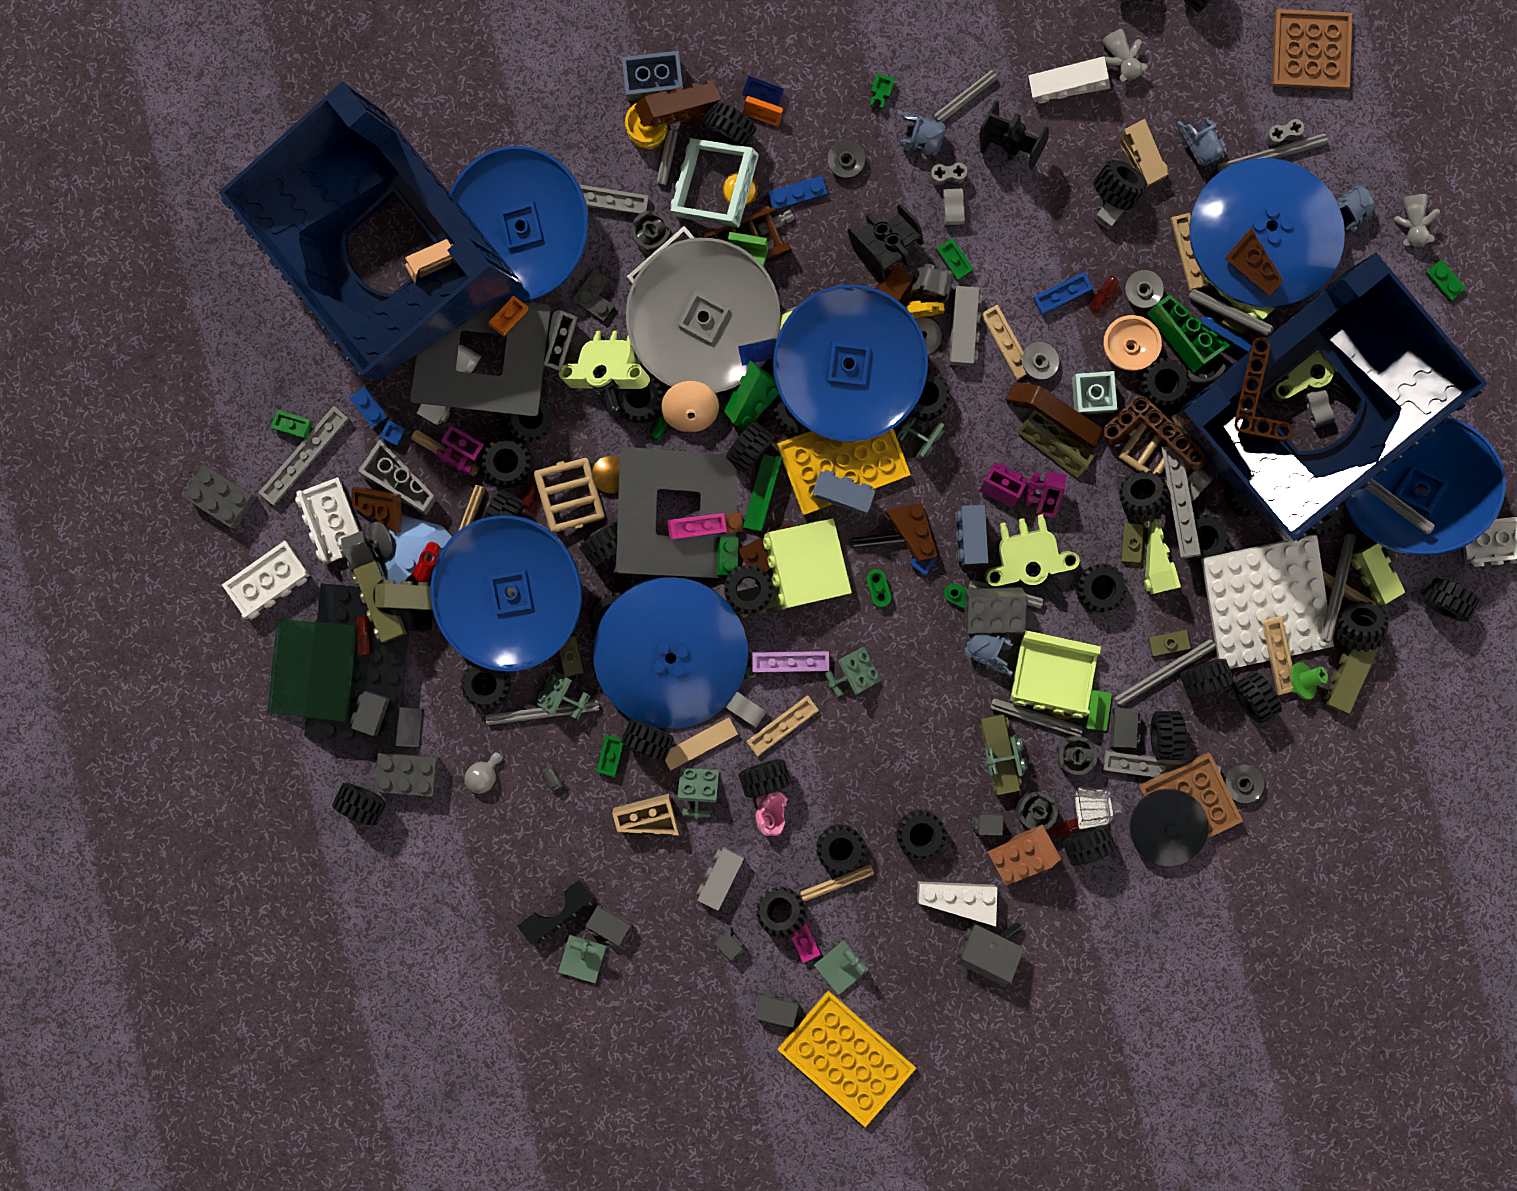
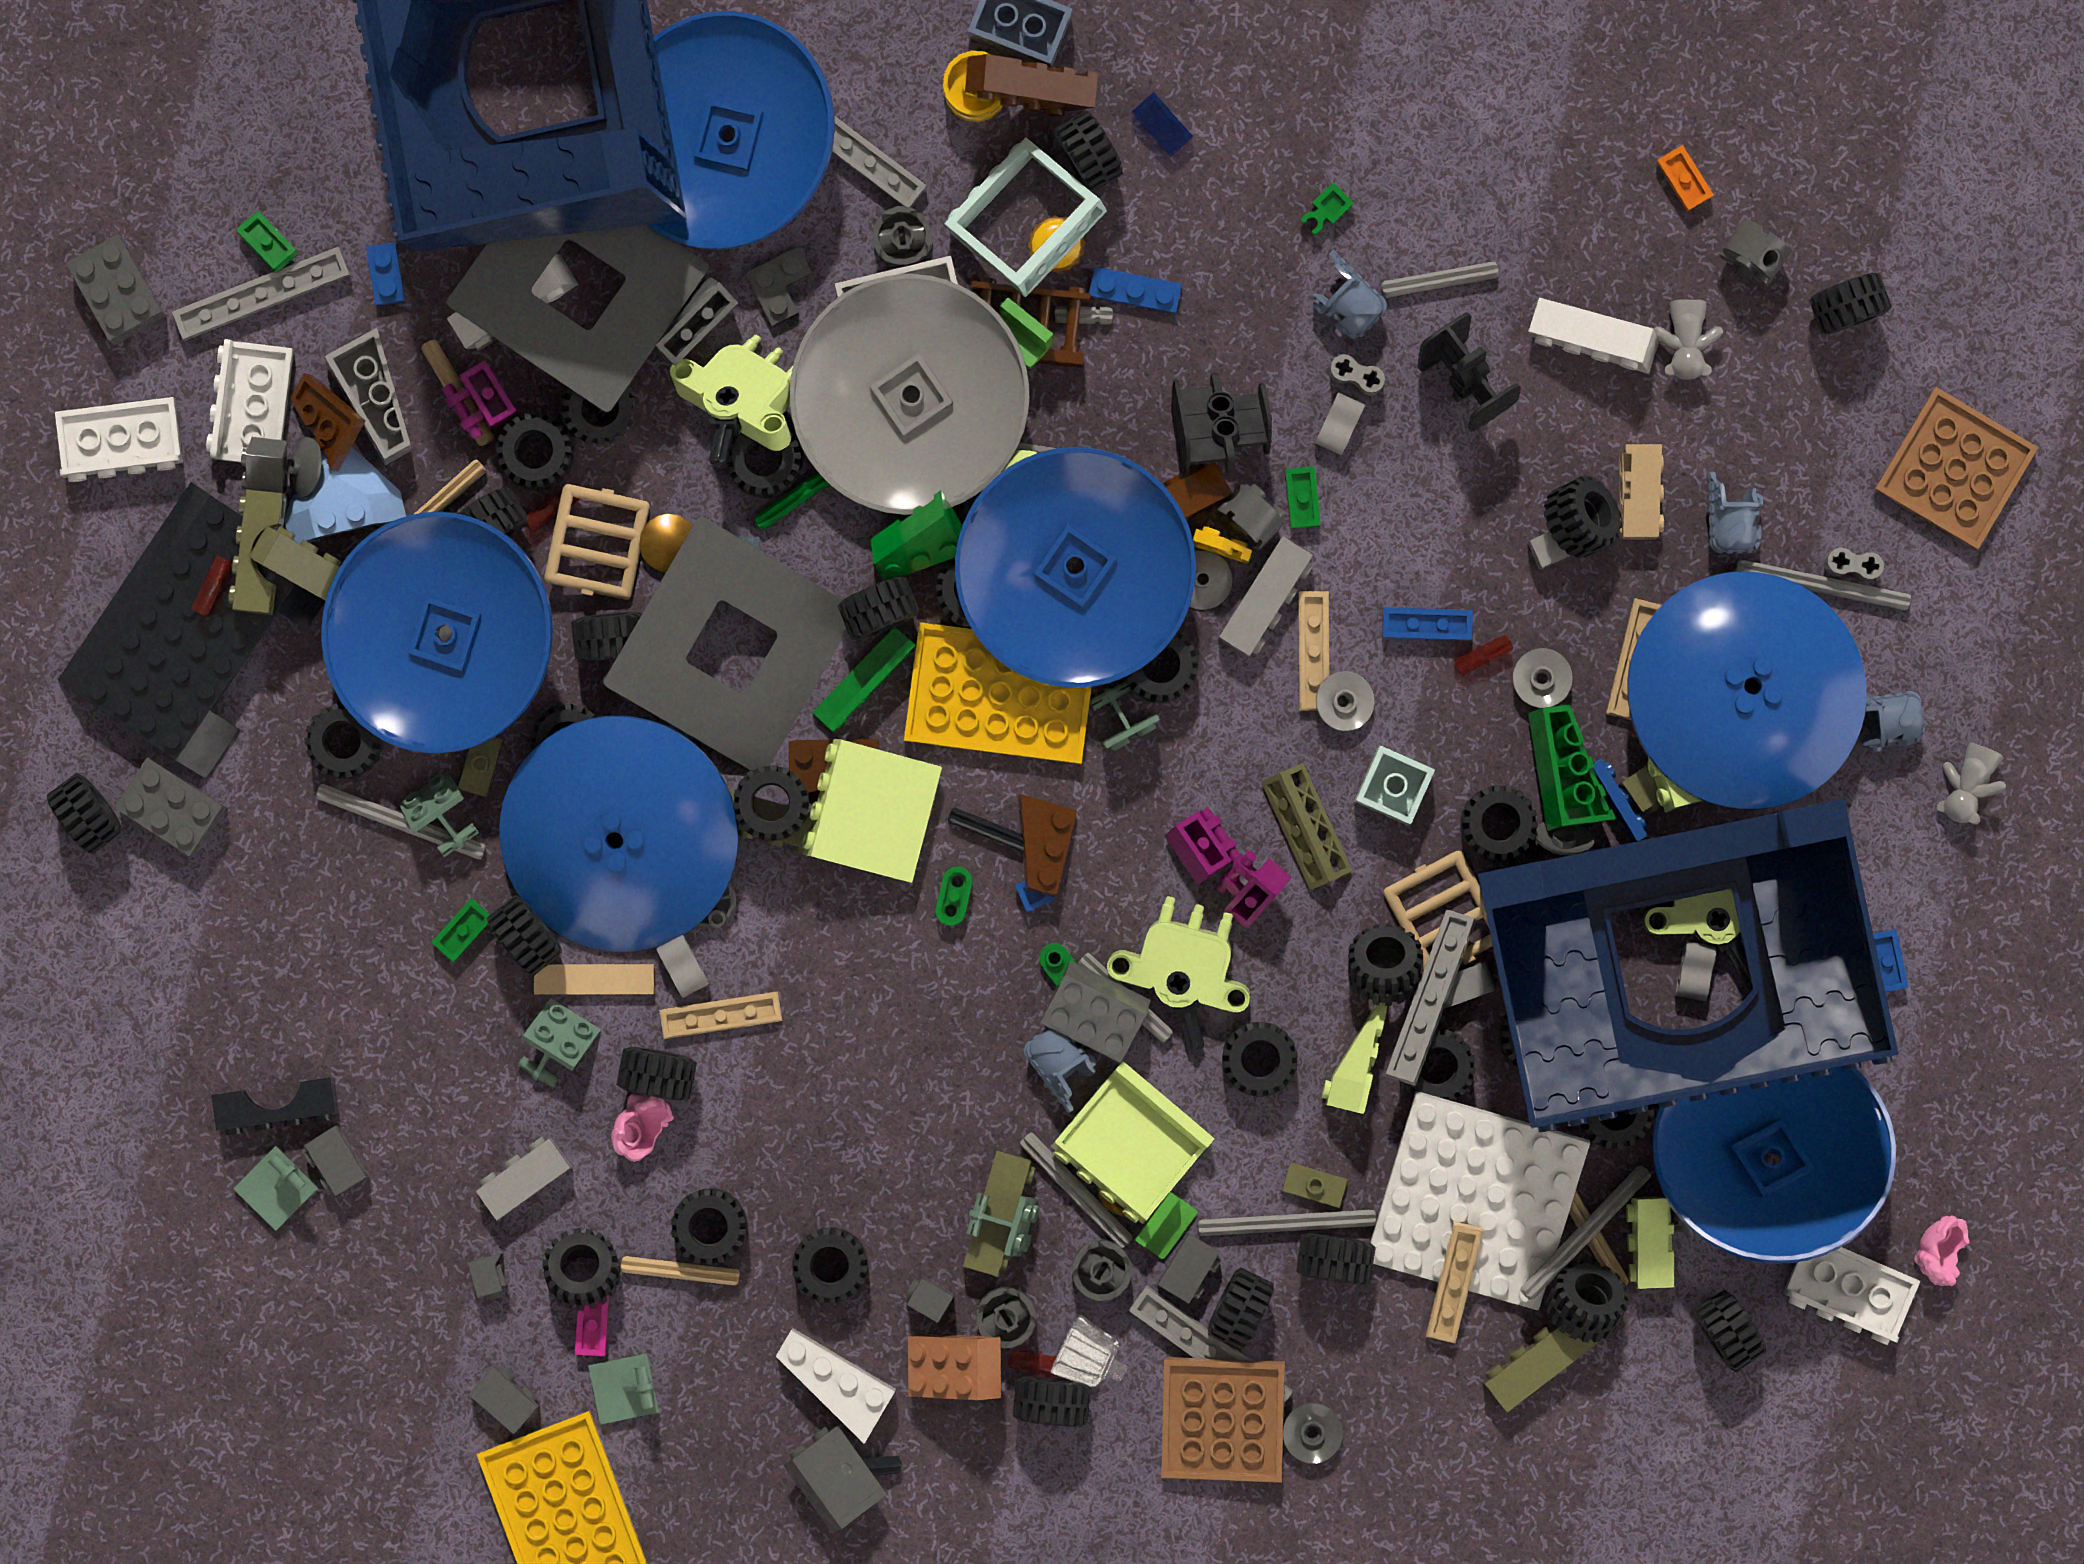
camera: 20 degrees right, 0 degrees up
(312, 669) = (117, 594): clear green piece -> none
(369, 713) = (165, 697): dark grey brick -> none
(393, 433) = (400, 327): blue plate -> none
(427, 562) = (352, 531): red piece -> none
(429, 260) = (575, 121): light nougat window -> none
(481, 775) = (272, 863): light grey hair -> none
(508, 315) = (643, 252): orange plate -> none
(552, 778) = (366, 919): dark grey pin -> none
(647, 816) = (468, 1039): tan wedge -> none
(667, 156) = (981, 145): light grey axle -> none
(690, 398) = (829, 497): light nougat dish -> none
(697, 526) = (748, 678): dark pink plate -> none
(727, 555) = (769, 740): green plate -> none
(733, 523) = (799, 699): dark orange plate -> none
(757, 351) = (957, 482): clear blue plate -> none
(762, 111) = (1146, 151): orange plate -> none
(790, 661) = (778, 932): lavender plate -> none
(843, 492) = (972, 739): sand blue brick -> none
(850, 150) = (1234, 265): dark grey dish -> none
(858, 671) = (864, 994): sand green plate -> none
(971, 535) = (1118, 891): sand blue brick -> none
(1056, 411) = (1326, 785): reddish brown beam -> none
(1132, 542) = (1337, 1019): olive plate -> none
(1136, 332) = (1496, 729): light nougat dish -> none
(1157, 428) = (1455, 881): reddish brown beam -> none
(1168, 827) = (1174, 1435): black dish -> none
(1231, 312) = (1639, 774): light grey axle -> none
(1253, 262) = (1697, 724): reddish brown wing -> none
(1253, 396) = (1601, 907): reddish brown beam -> none
(1257, 697) = (1391, 1322): black tyre -> none
(1306, 679) = (1472, 1335): bright green piece -> none
(1400, 507) = (1720, 1159): light grey axle -> none
(1445, 280) = (1968, 887): green plate -> none

